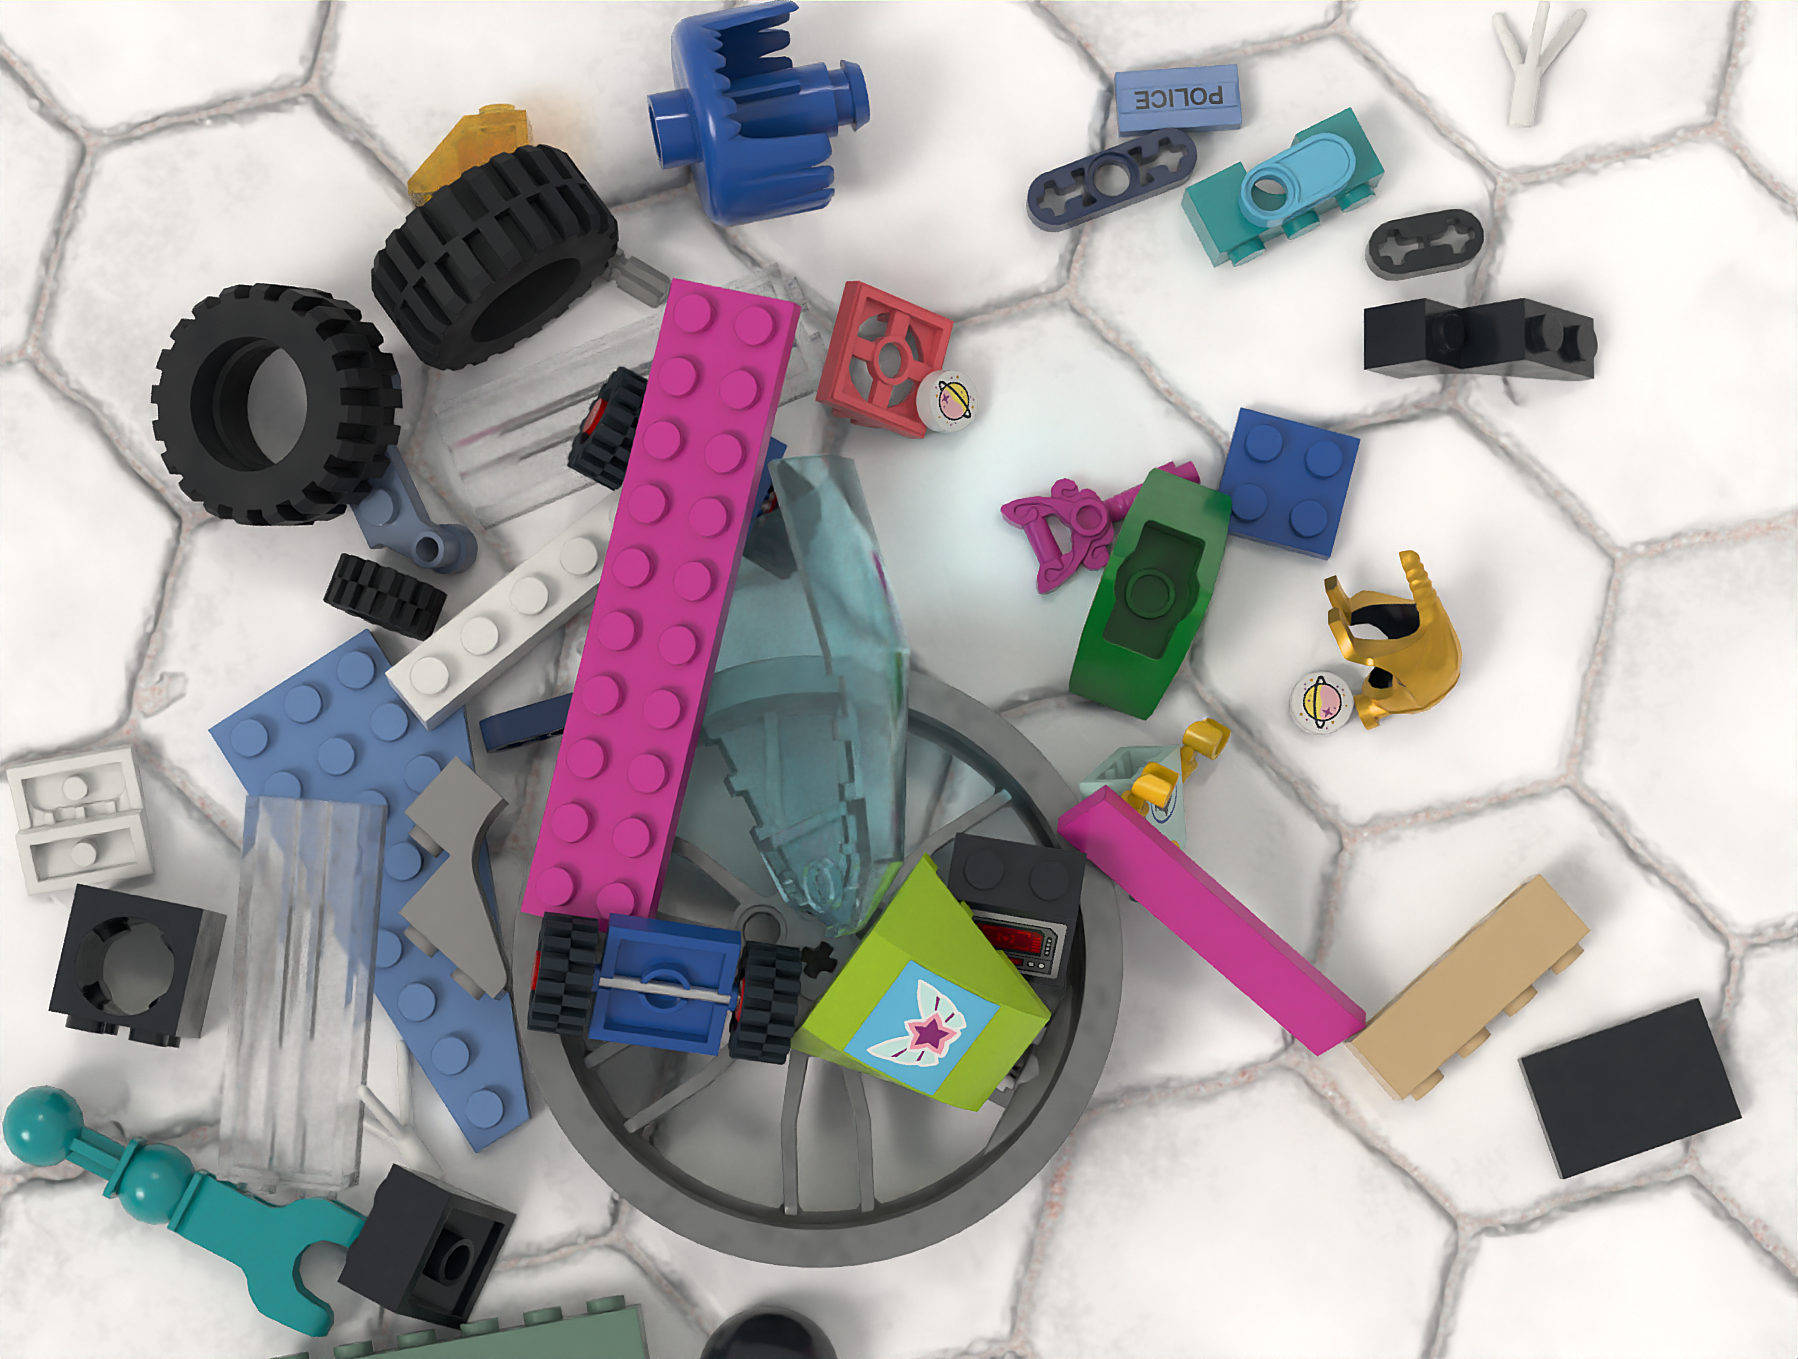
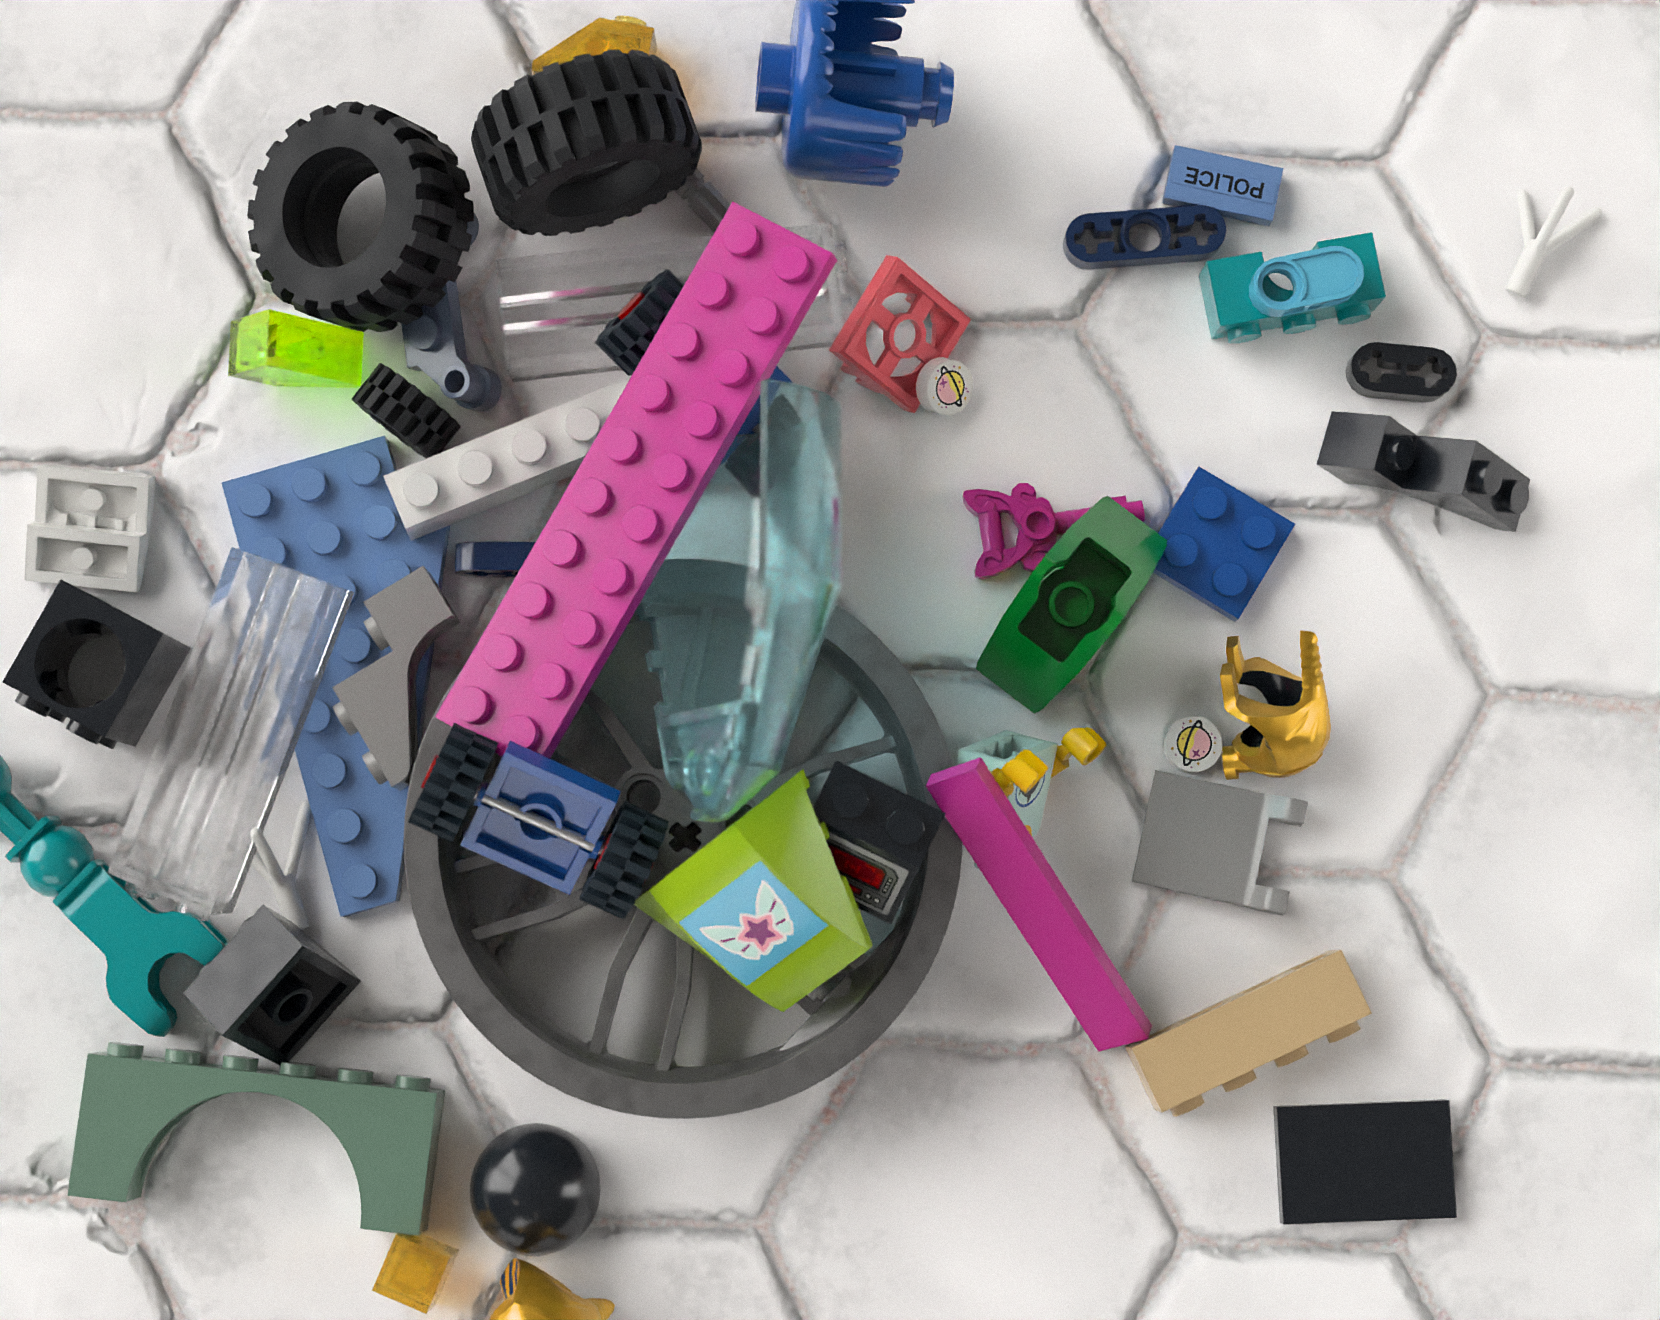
camera: 15 degrees right, 0 degrees up
(244, 567) = (294, 351): none -> clear neon green slope
(1370, 799) = (1211, 840): none -> light grey flag

